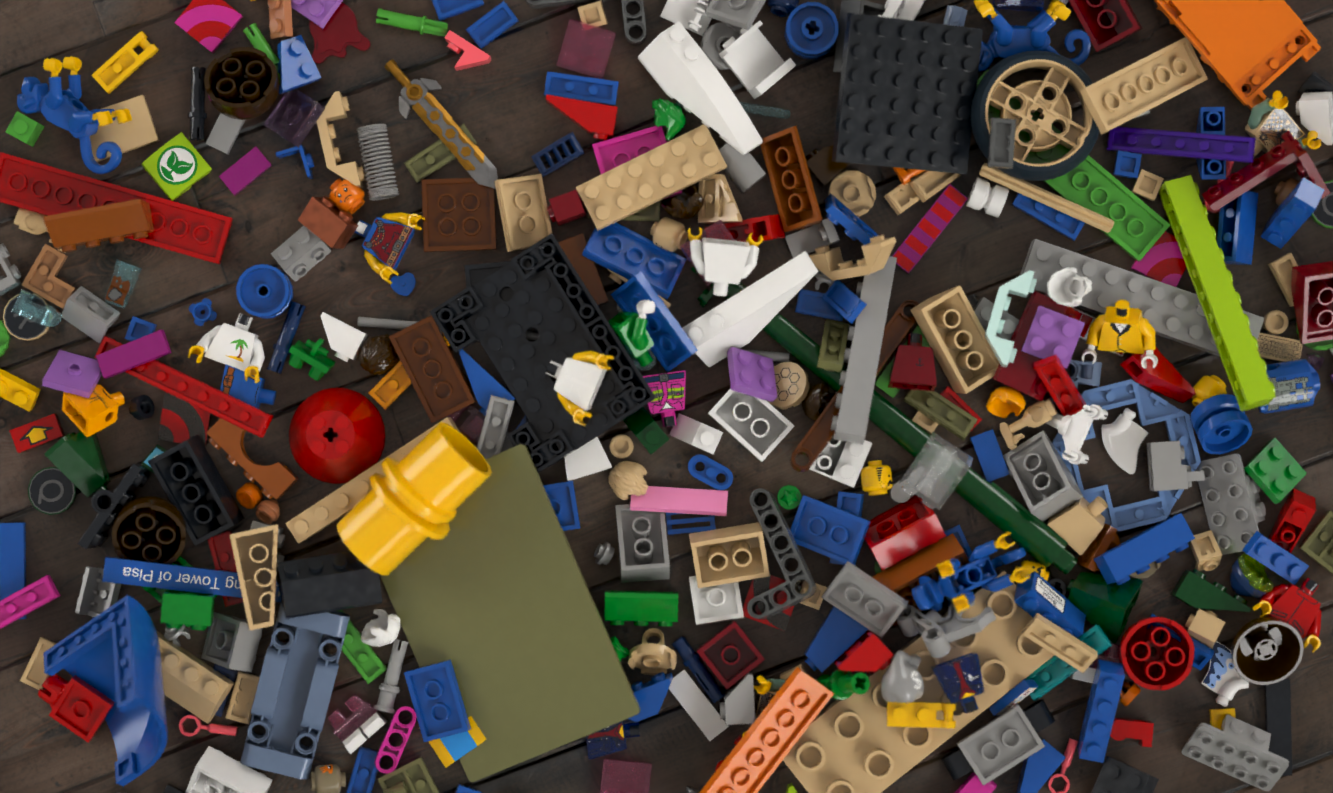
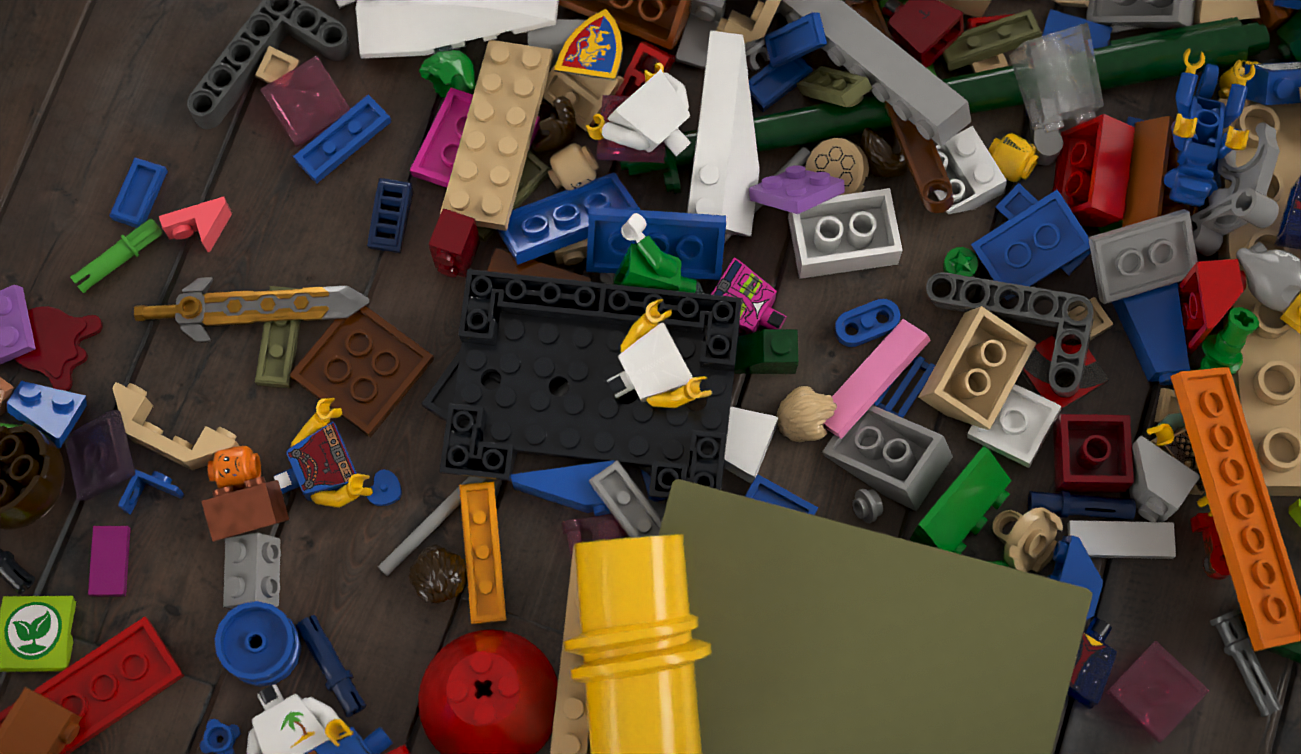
camera: 50 degrees left, 15 degrees down
(224, 133) = (47, 547): light grey tile -> none
(313, 354) = (363, 661): green hips -> none
(343, 338) = (385, 599): white slope -> none
(377, 132) = (245, 411): light grey piece -> none
(432, 369) = (505, 524): reddish brown plate -> none
(492, 25) = (194, 175): blue tile -> none
(523, 211) = (416, 295): tan tile -> none
(590, 116) = (375, 153): red slope -> none
(621, 446) = (761, 395): tan tile -> none
(696, 433) = (815, 302): white slope -> none
(745, 189) = (593, 49): none -> shield

